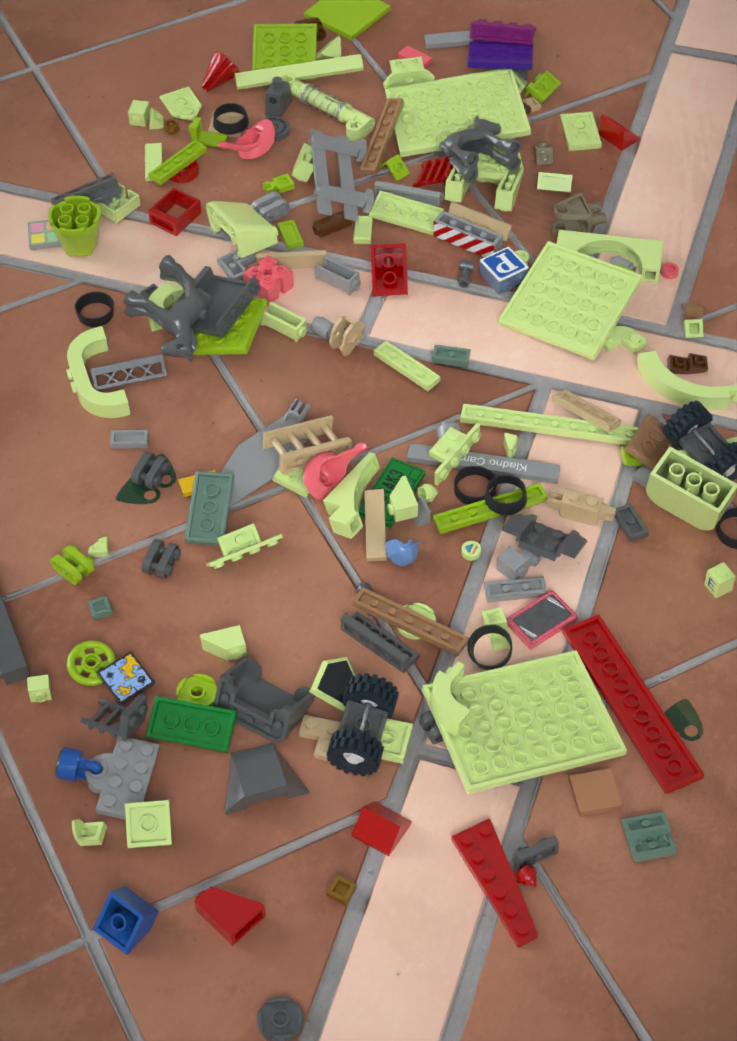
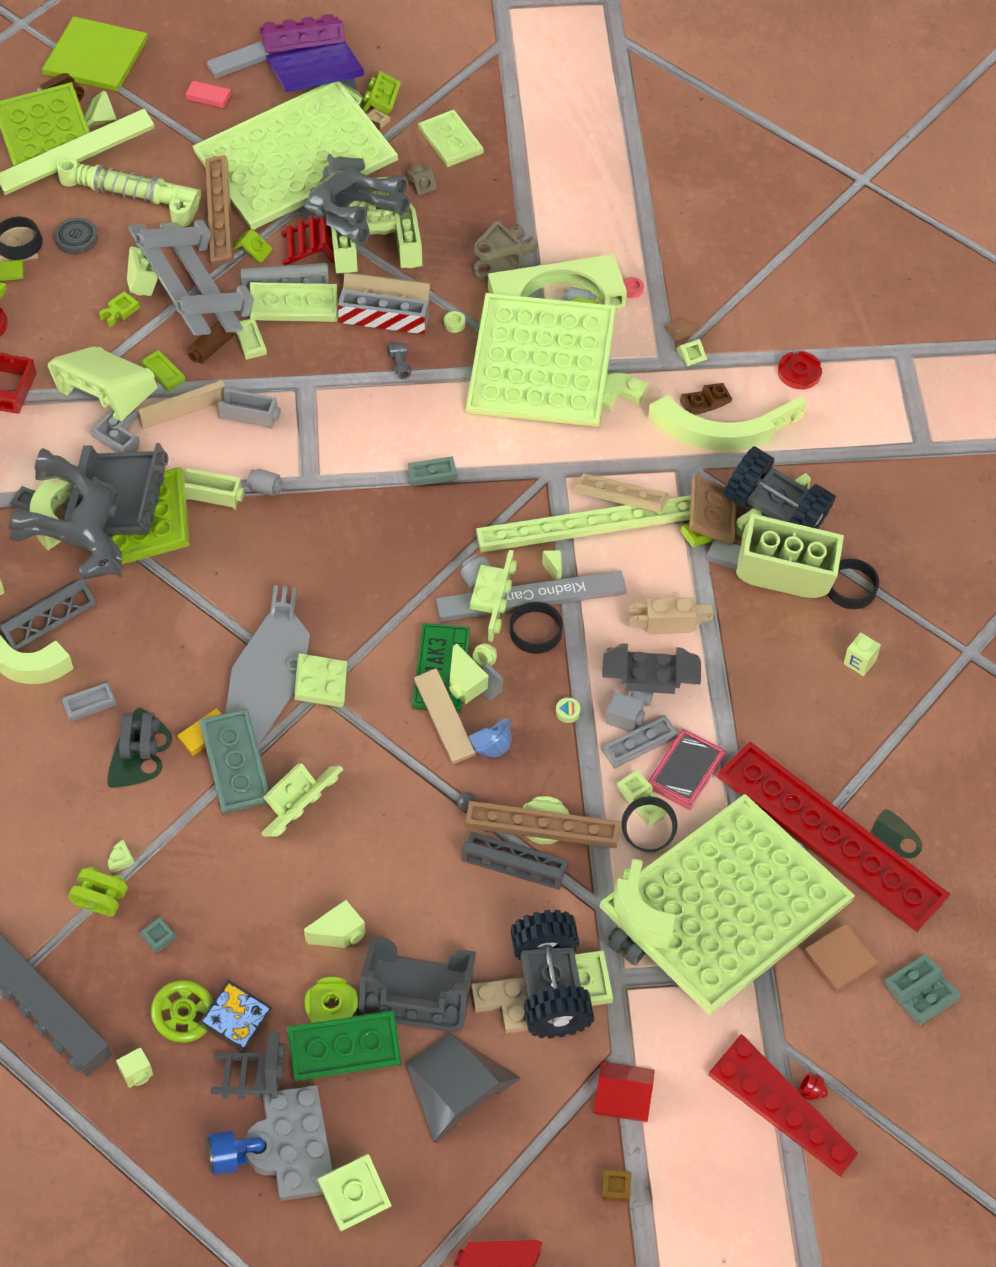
camera: 25 degrees left, 5 degrees up
(88, 833) = (286, 1230): yellowish green plate -> none
(166, 564) = (216, 855): dark grey brick -> none
(254, 142) = (63, 260): coral hat -> none
(271, 206) = (124, 340): light grey brick -> none
(271, 278) = (173, 435): coral brick -> none
(278, 97) = (65, 184): dark grey torso -> none
(292, 434) = (324, 658): tan fence -> none
(327, 470) = (359, 666): coral hat -> none
(332, 681) = (490, 931): black tile -> none
(345, 498) = (393, 693): yellowish green arch -> none
(347, 335) = (298, 483): tan hinge -> none
(389, 270) = (309, 383): red slope -> none
(407, 72) = (213, 118): yellowish green piece -> none
(407, 365) = (386, 500): yellowish green plate -> none
(479, 512) = (566, 651): lime plate -> none
(503, 270) = (445, 343): piece -> none
(503, 508) = (578, 647): black tyre -> none
(542, 850) = (818, 1048): dark grey plate -> none
(554, 182) = (451, 212): yellowish green panel -> none
(616, 133) = (495, 131): red slope -> none
(631, 523) = (733, 616): dark grey plate -> none

